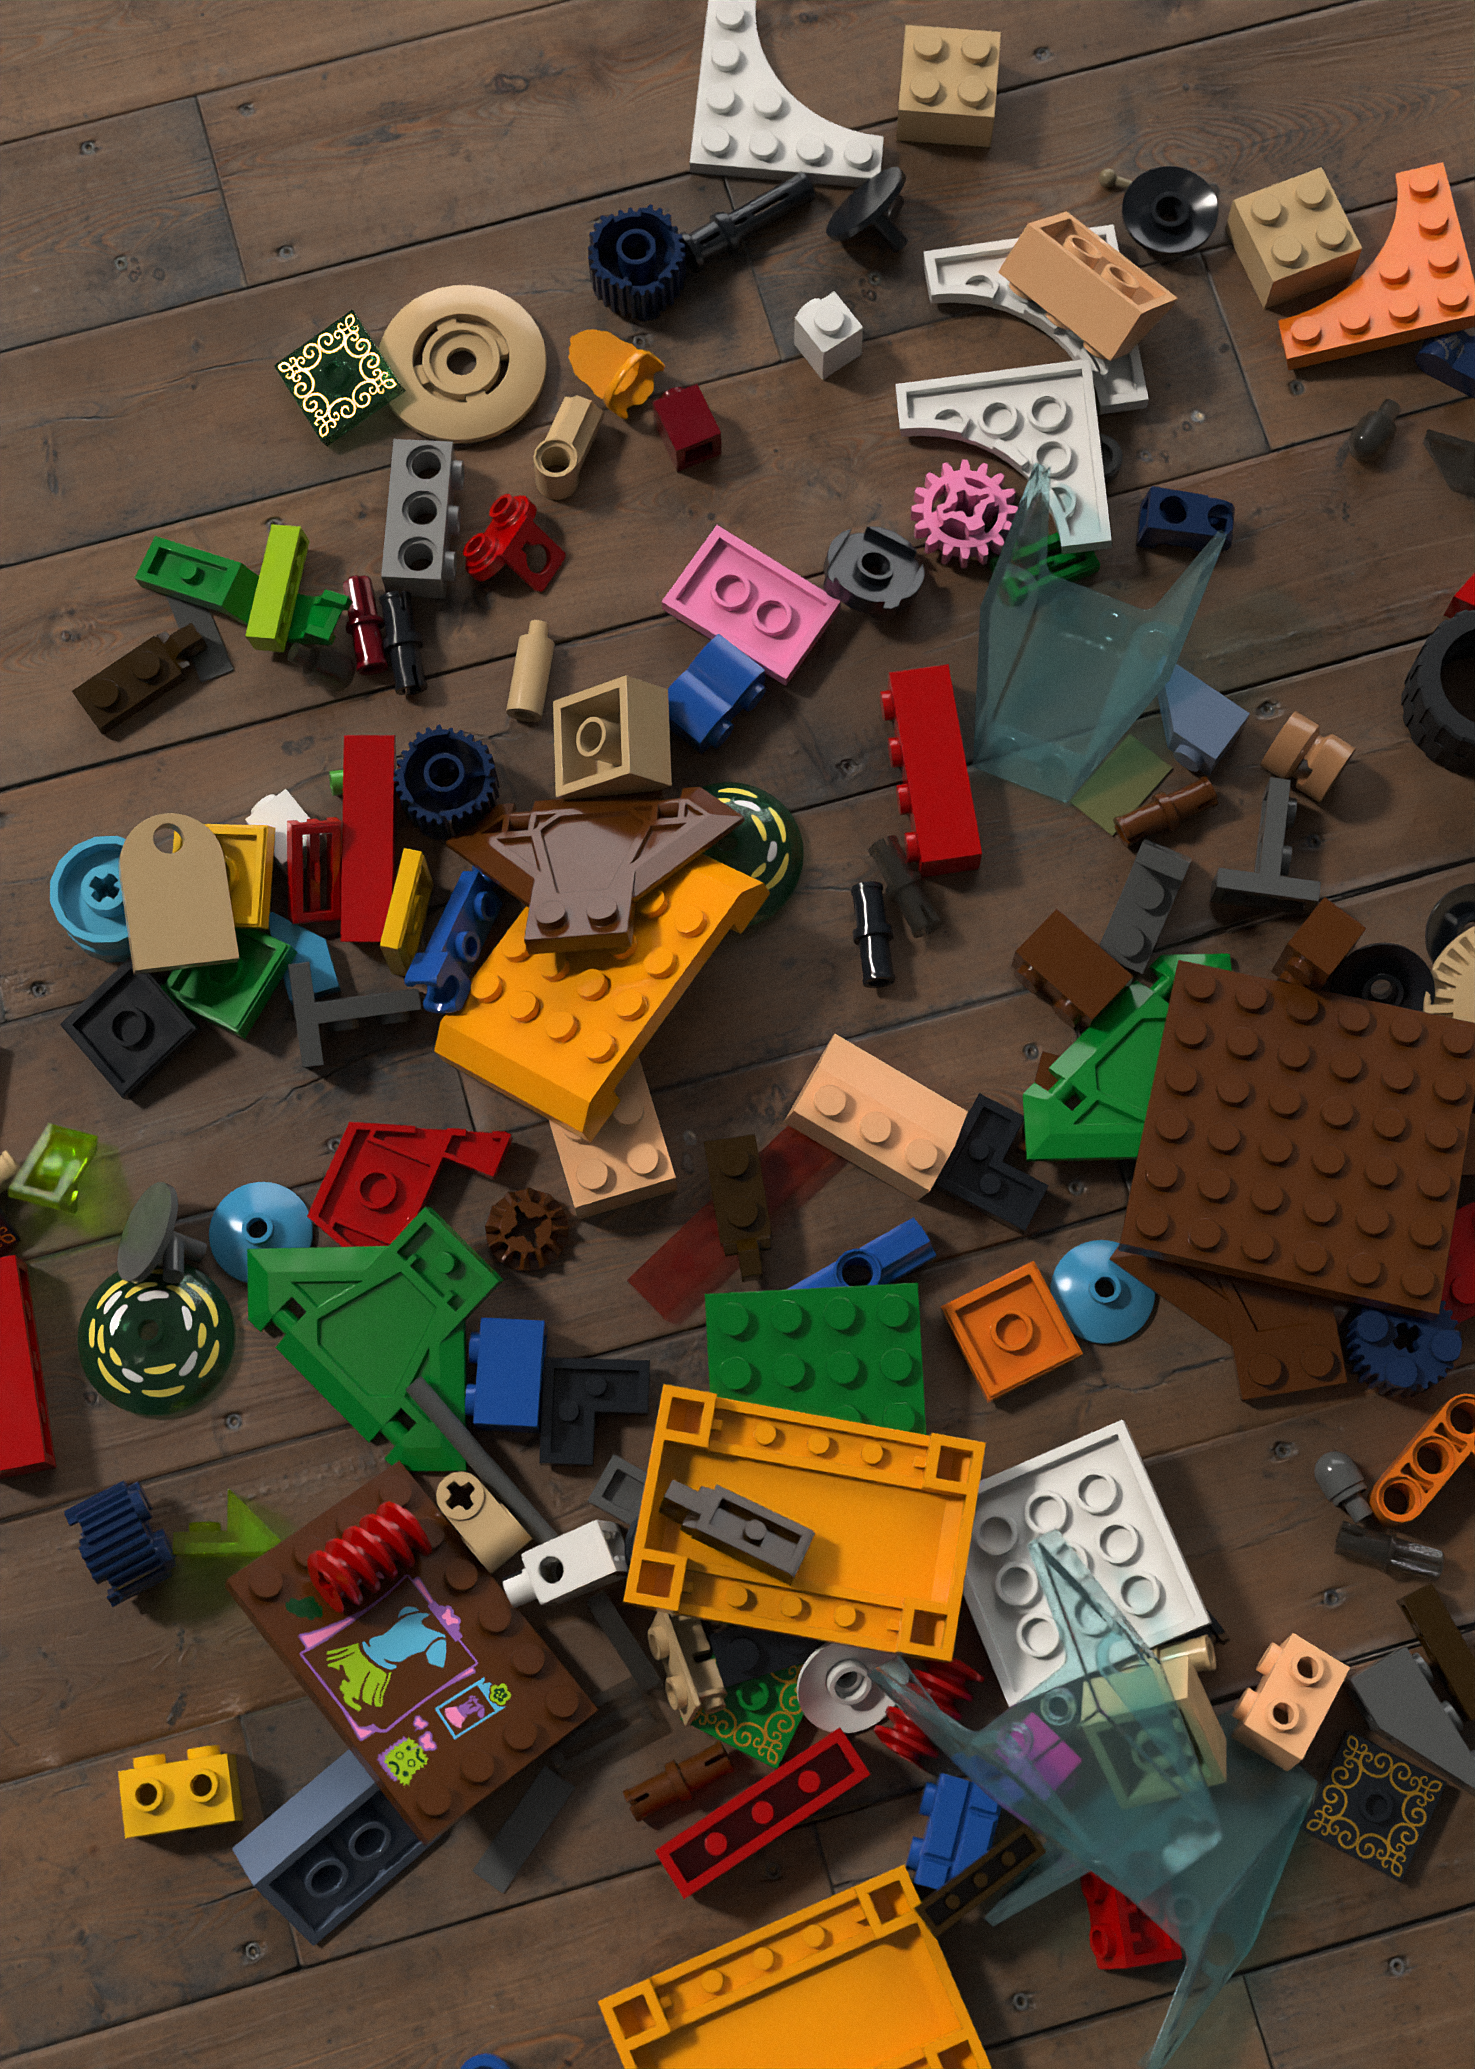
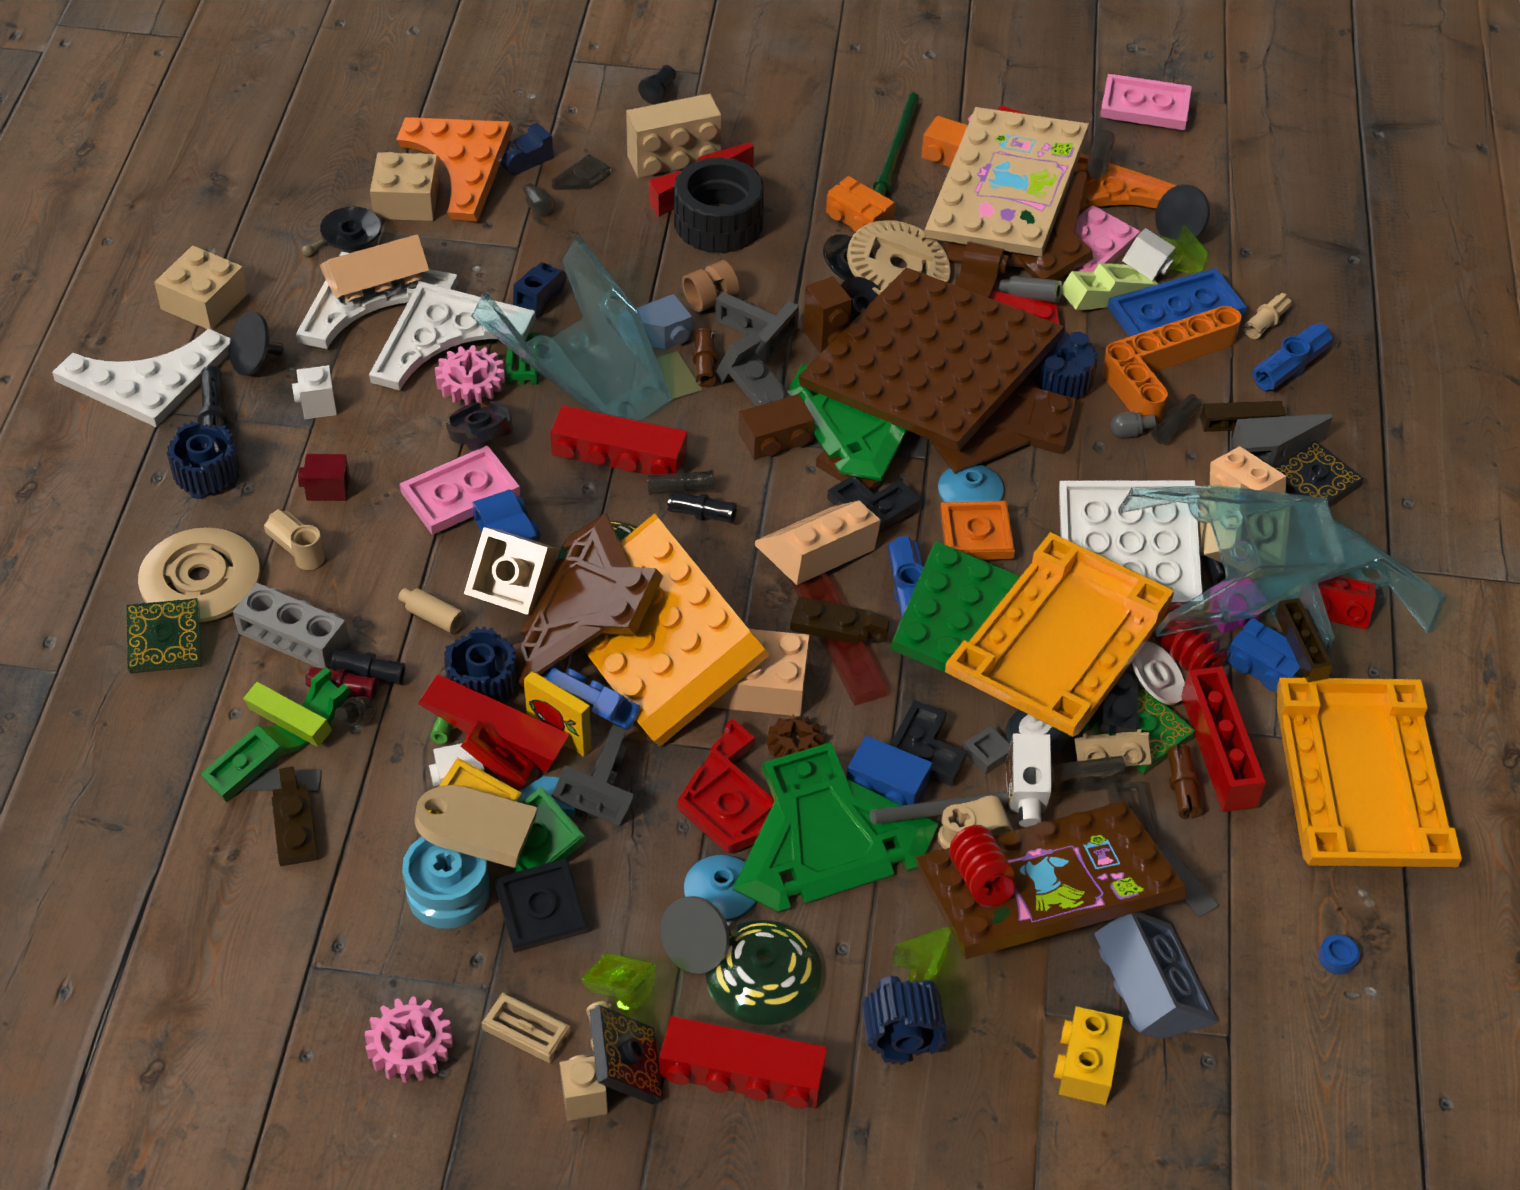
camera: 70 degrees left, 25 degrees down
(503, 540) = (336, 588): red bracket -> none
(613, 369) = (260, 498): light orange piece -> none
(739, 1528) = (1052, 659): dark brown hinge -> none

